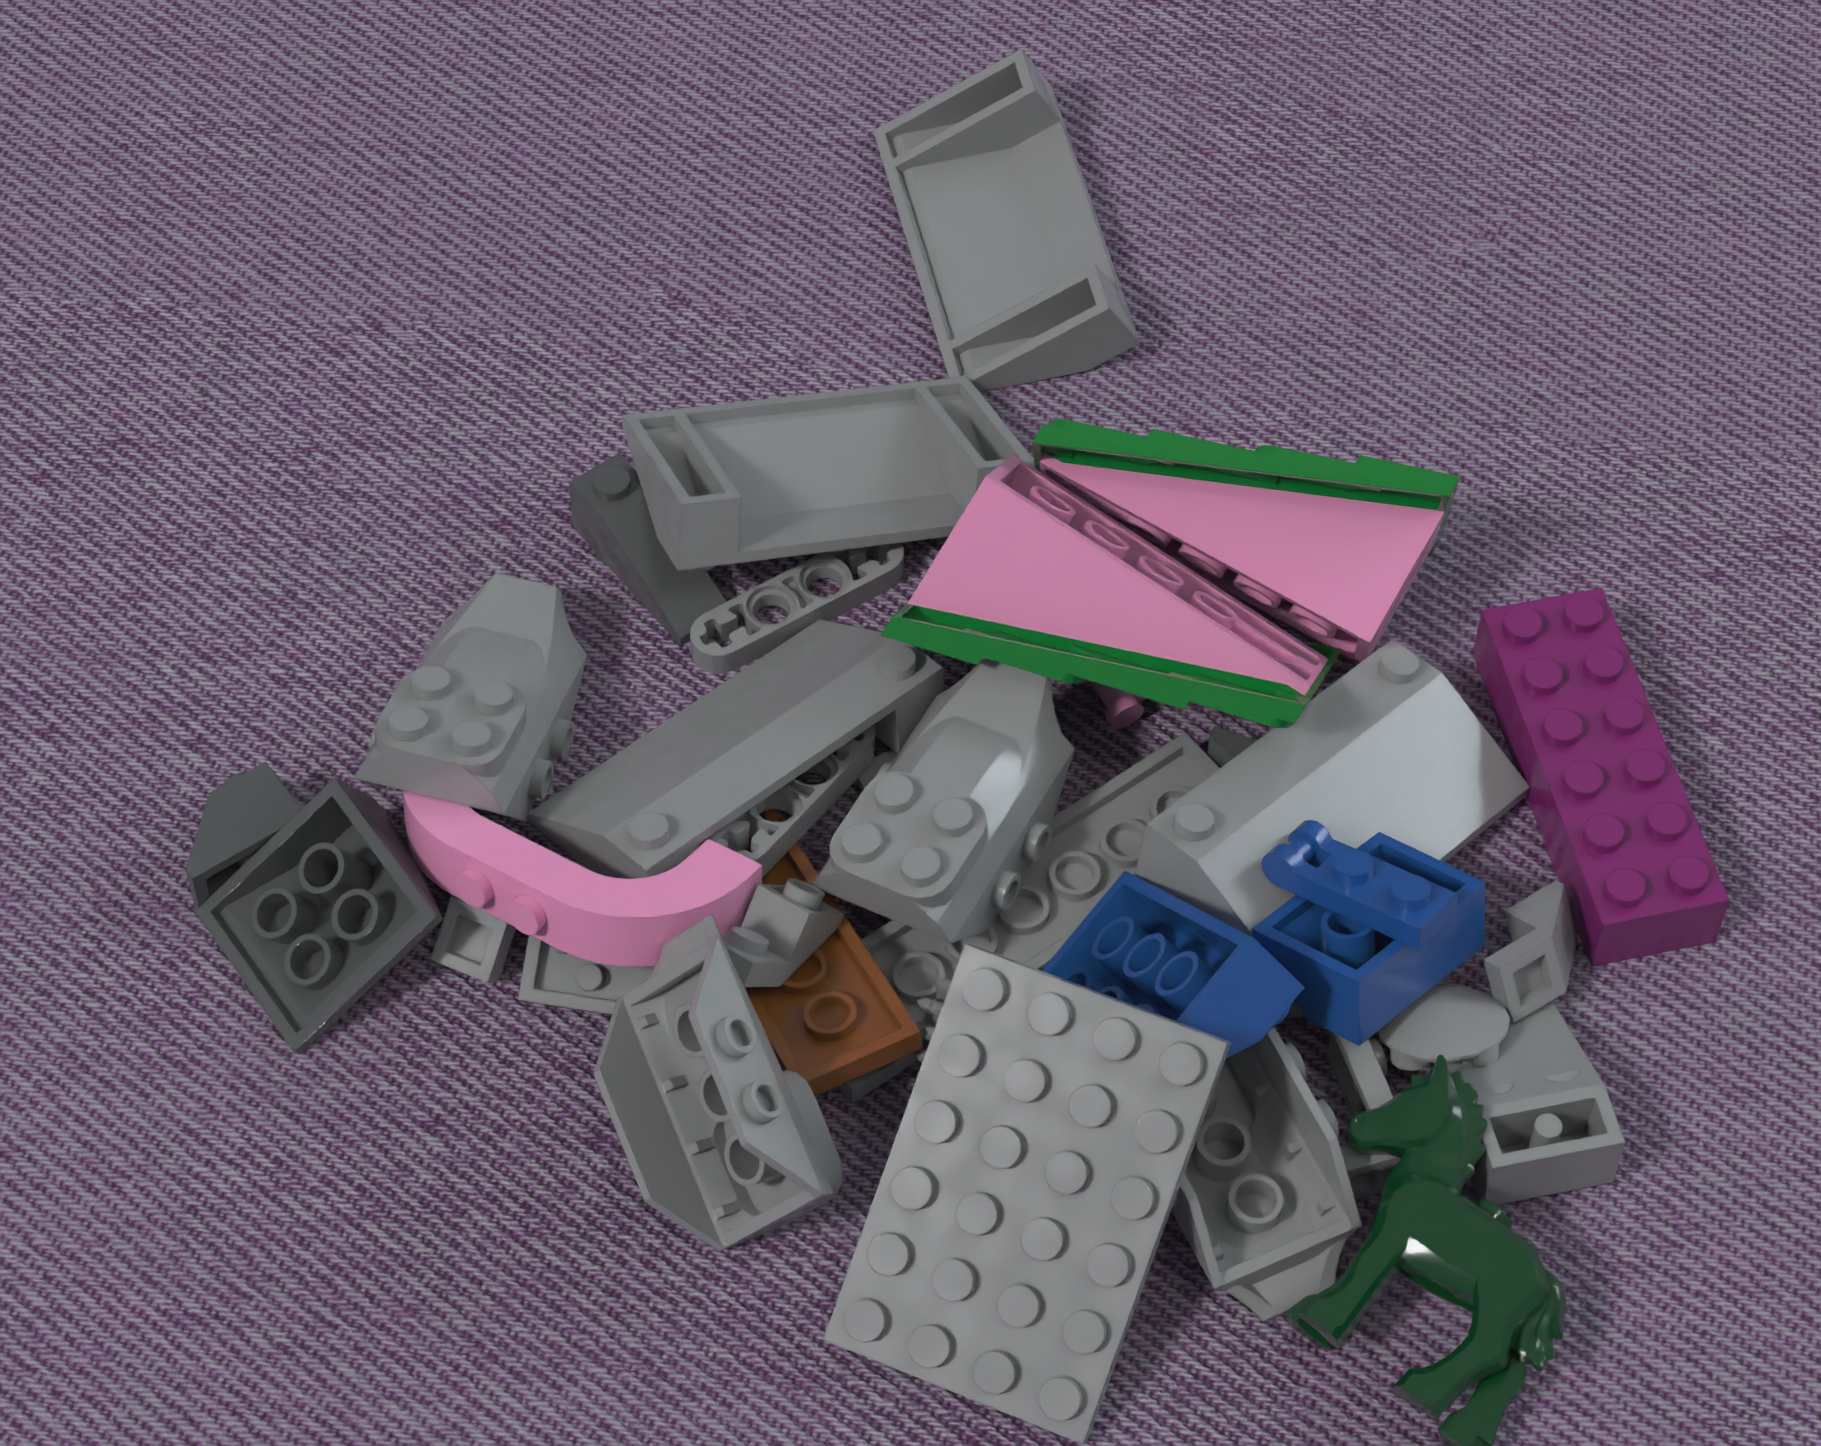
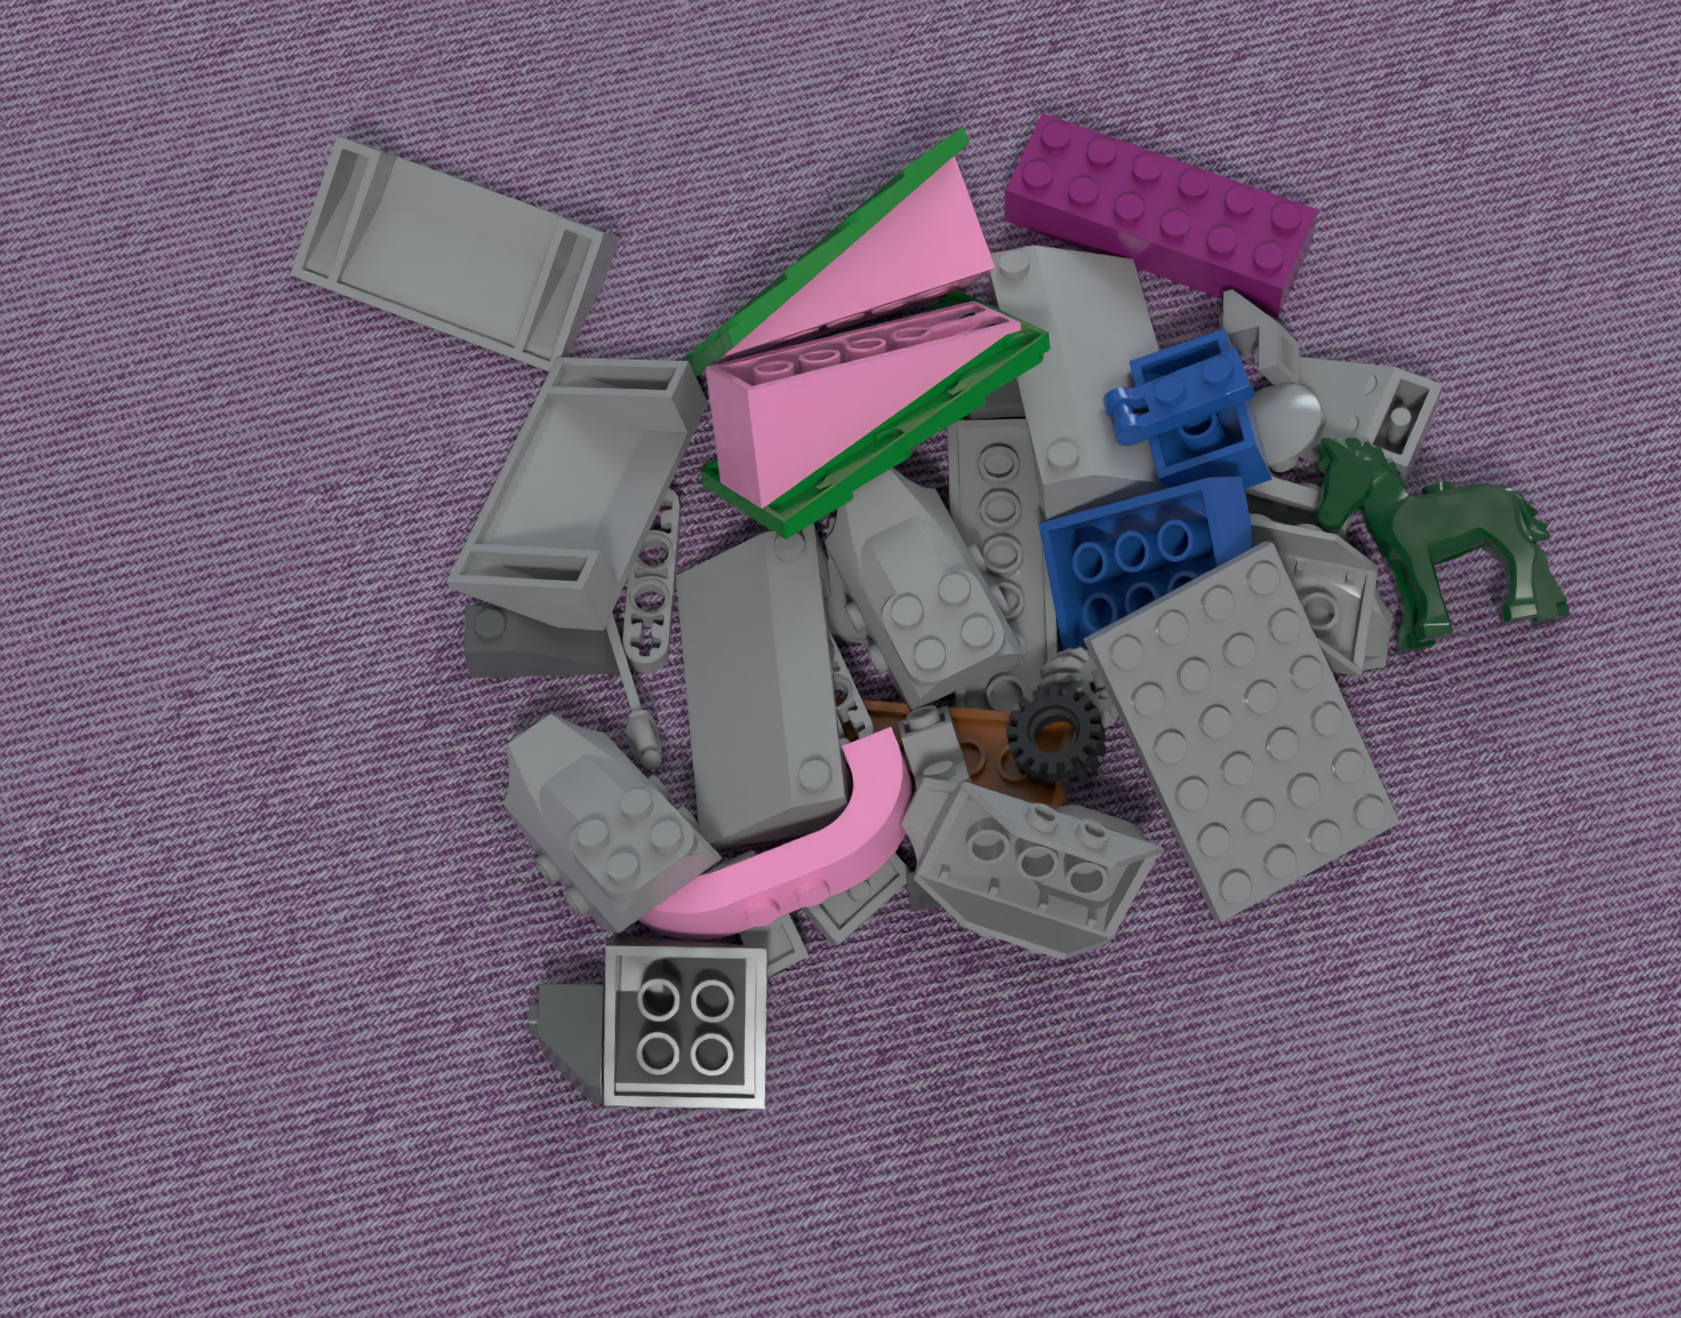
camera: 50 degrees left, 10 degrees up
(620, 695) = (640, 725): none -> light grey sword
(872, 990) = (1048, 710): none -> black tyre

